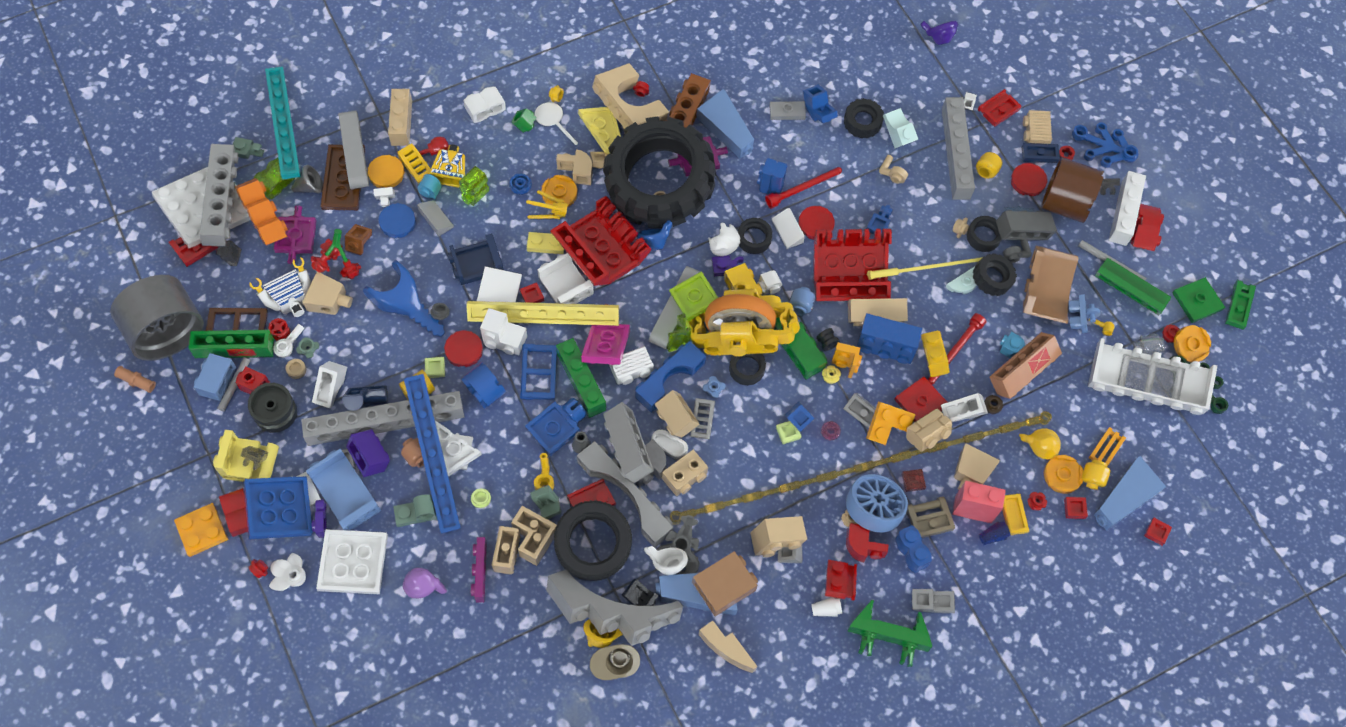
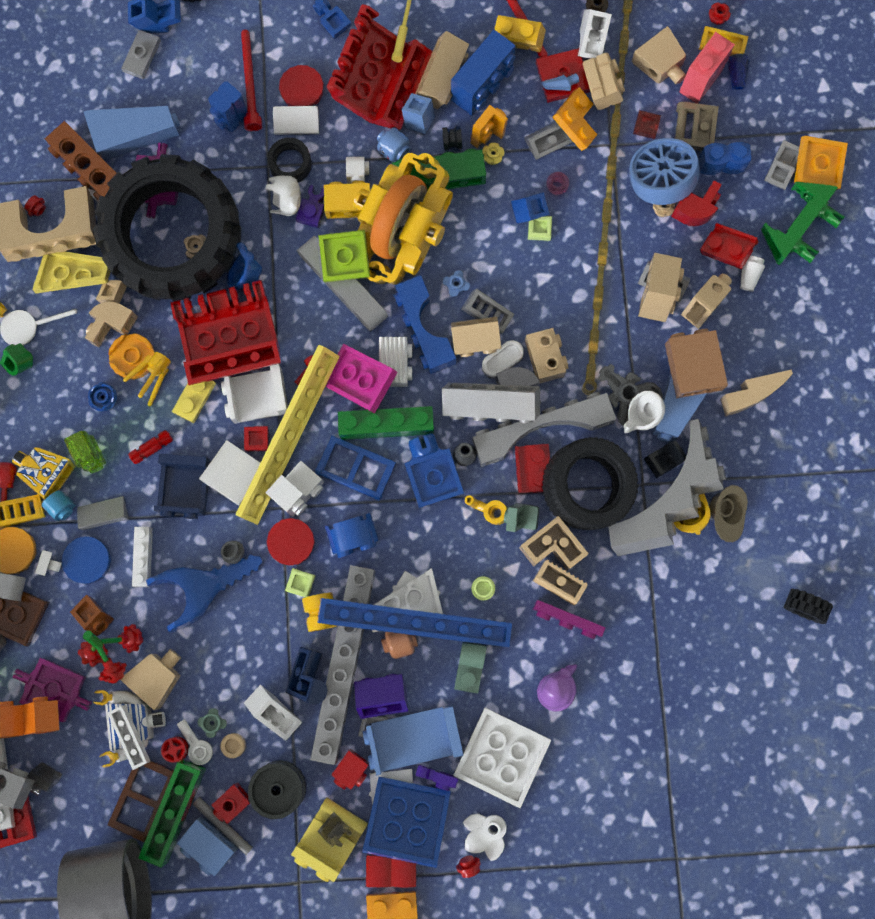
camera: 60 degrees left, 15 degrees up
(276, 291) = (129, 737): none -> white piece
(304, 453) = (350, 770): none -> red brick
(415, 253) = (142, 556): none -> white piece
(497, 229) = (150, 447): none -> red axle
(681, 335) = (380, 287): clear neon green panel -> none
(747, 379) = (451, 254): black tyre -> none
(787, 578) = (707, 299): none -> tan torso
(835, 308) = (418, 113): none -> medium blue panel
(912, 400) = (561, 82): none -> medium blue bar
(948, 627) = (820, 161): none -> light orange plate

